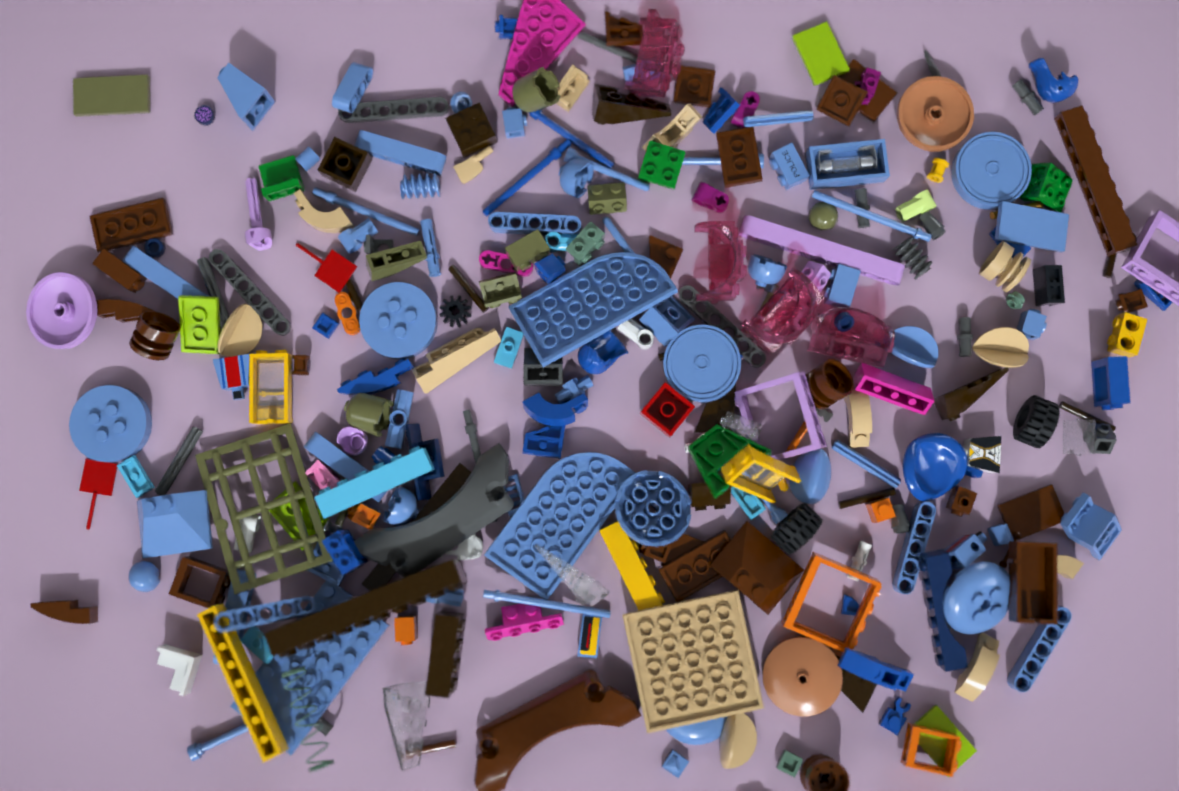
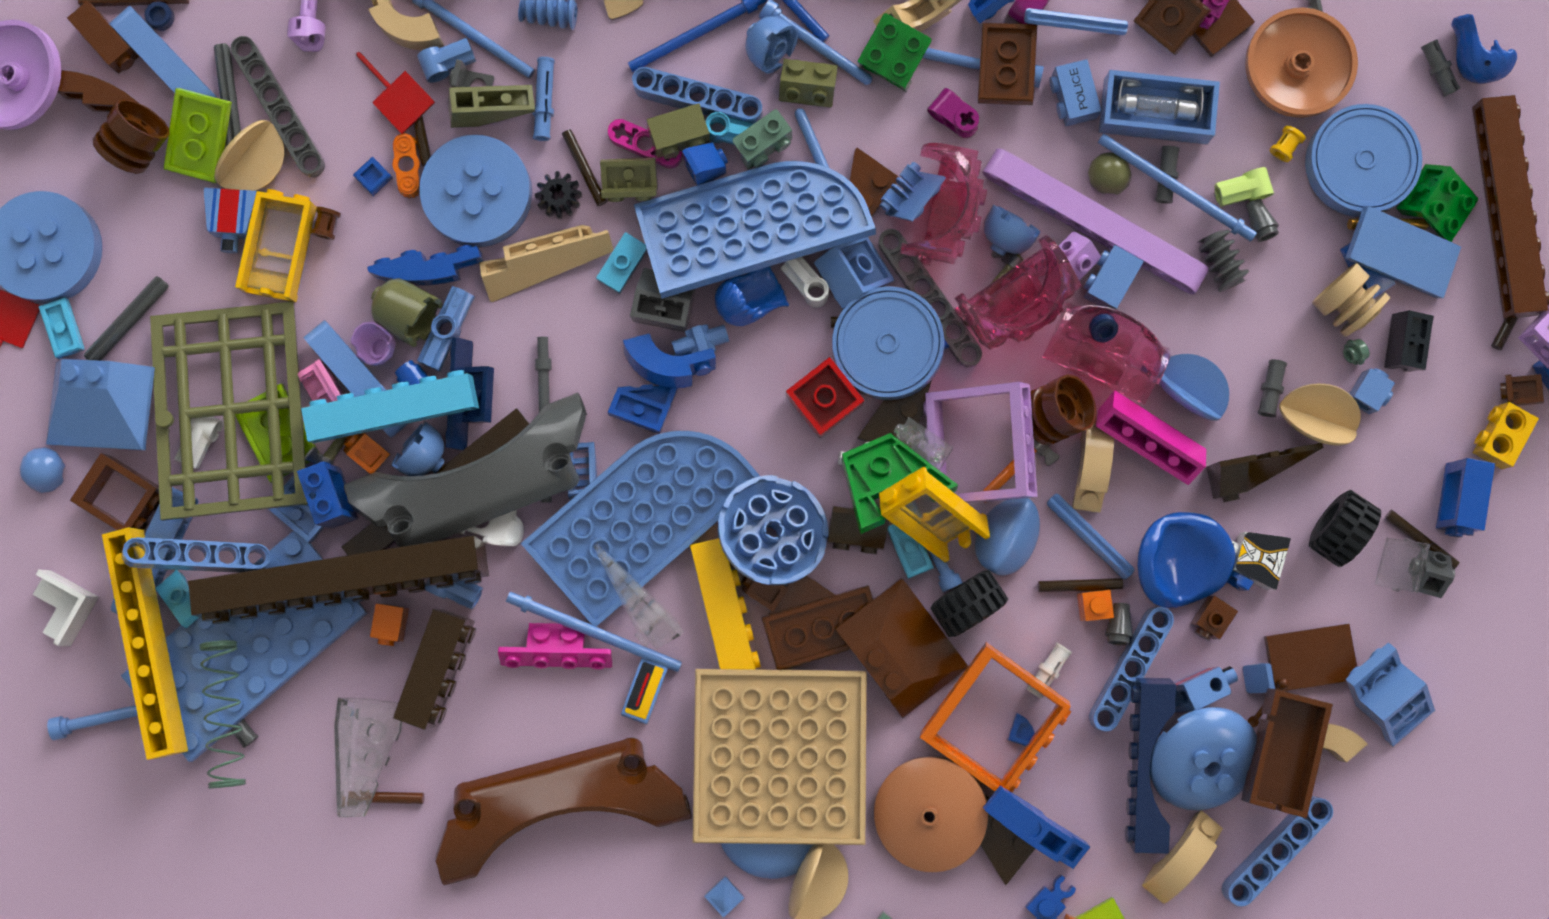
camera: 15 degrees right, 0 degrees up
(697, 258) = (916, 192): none -> medium blue hinge

